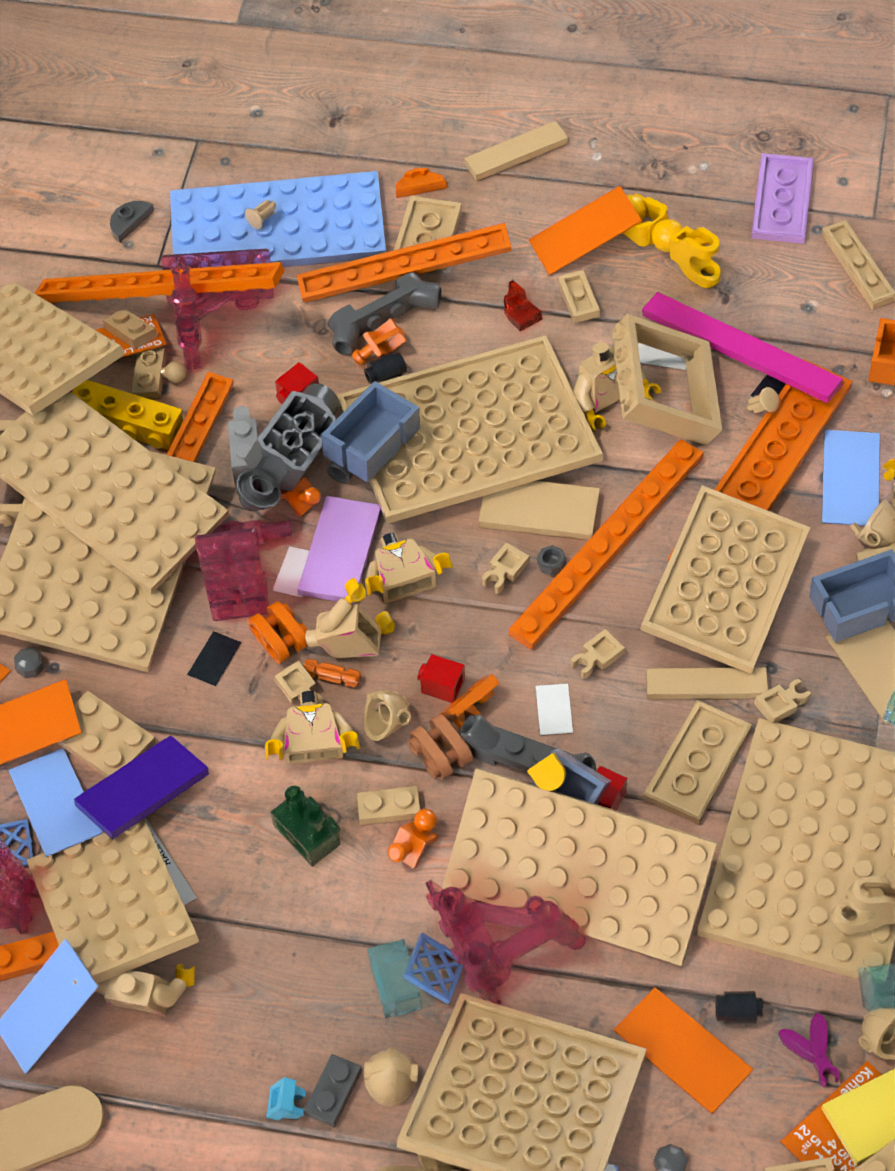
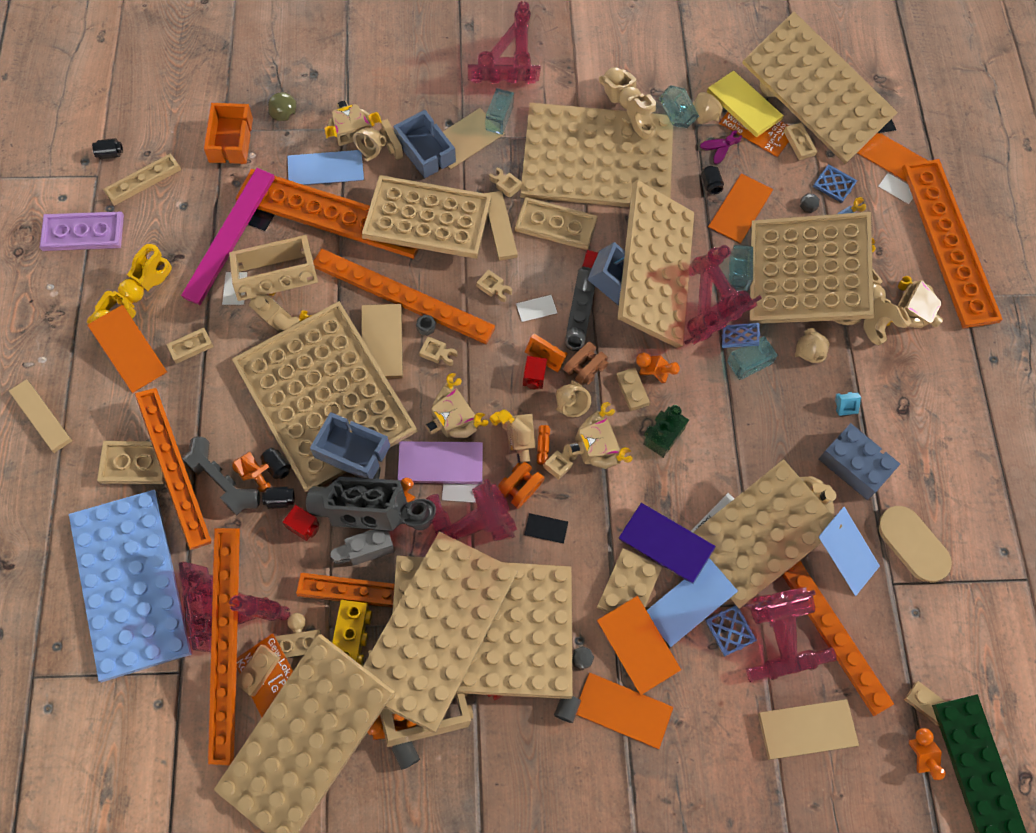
camera: 110 degrees left, 10 degrees up
(128, 217) = (130, 712): dark grey plate -> none
(186, 1074) = (859, 461): none -> sand blue piece
(258, 215) = (129, 590): tan piece -> none
(332, 1090) = (828, 380): dark grey plate -> none
(338, 368) = (278, 497): none -> black brick
(419, 181) = (76, 481): orange tile -> none
(519, 308) = (203, 386): clear red slope -> none
(548, 773) = (616, 272): yellow tile -> none
(555, 1004) = (741, 267): none -> clear light blue panel
(767, 400) = (276, 217): tan piece -> none

